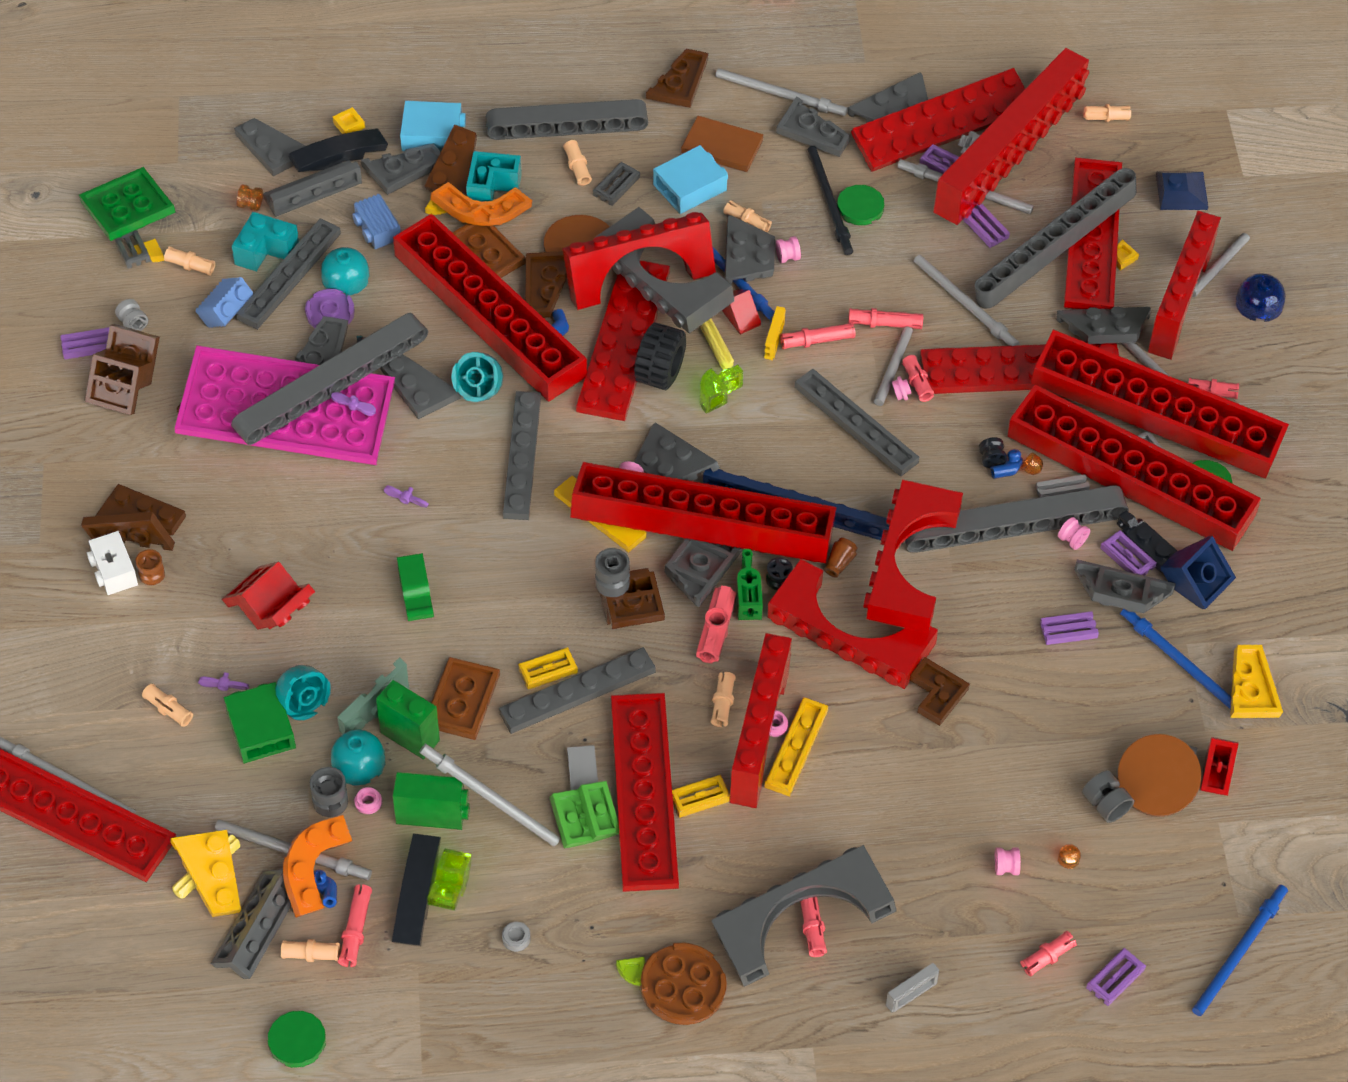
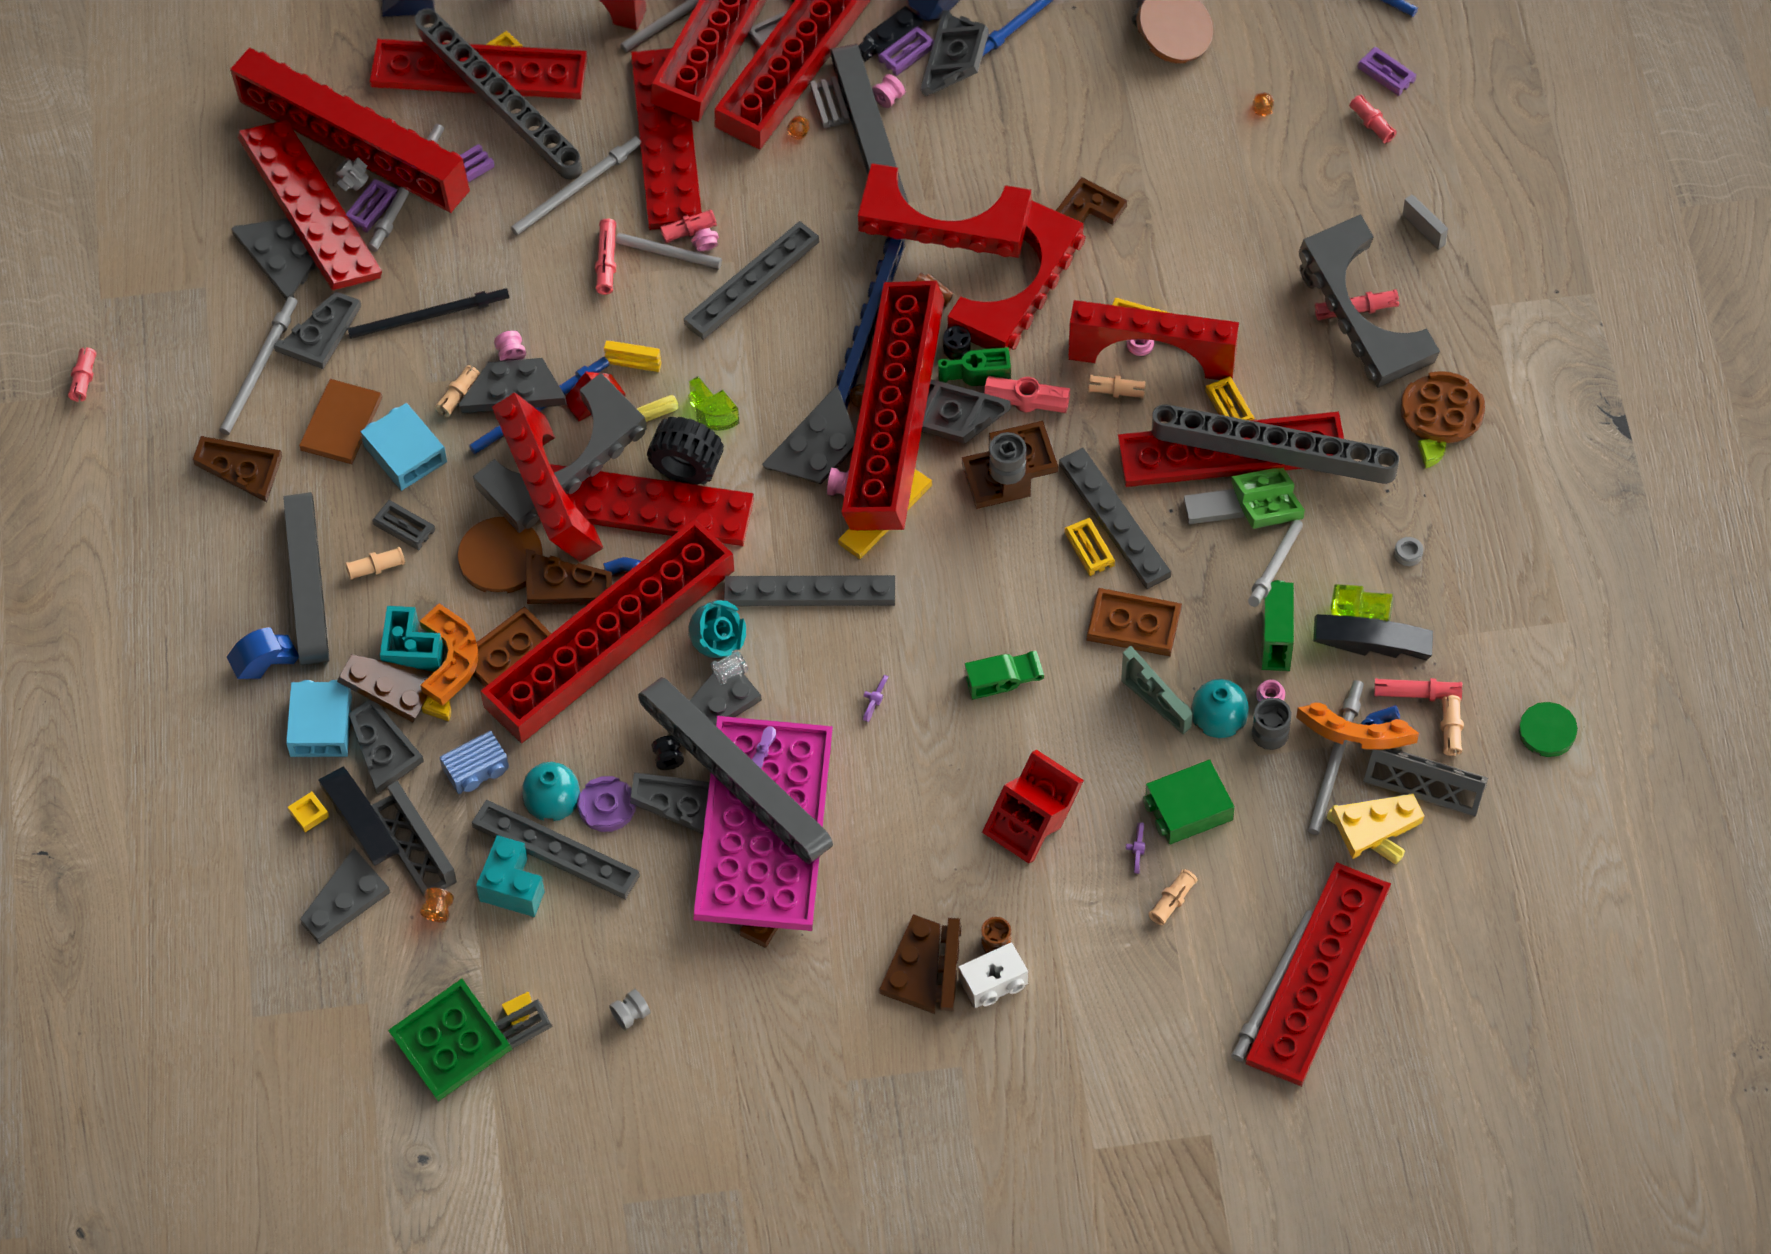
camera: 90 degrees left, 5 degrees up
(86, 341) = (662, 1035): medium lavender tile -> none
(122, 369) = (720, 999): reddish brown bracket -> none
(189, 260) = (538, 960): light nougat pin -> none
(224, 302) = (609, 907): medium blue brick -> none
(302, 691) = (1147, 762): teal cylinder -> none
(407, 718) = (1185, 650): green brick -> none
(440, 385) = (729, 667): none -> clear bush
(495, 88) = (258, 651): none -> blue brick
(631, 825) = (1285, 453): none -> dark grey beam
(808, 337) = (635, 326): coral pin -> none
(860, 204) = (435, 283): green tile -> none
(992, 452) = (788, 158): black wheel -> none
(1007, 861) = (1279, 148): bright pink wheel -> none
(1011, 466) = (801, 146): blue arm -> none
(1068, 624) = (997, 83): medium lavender tile -> none
(1106, 325) = (610, 58): dark grey wing -> none
(1107, 113) = (297, 51): light nougat axle -> none
(1111, 800) = (1201, 66): dark grey wheel -> none

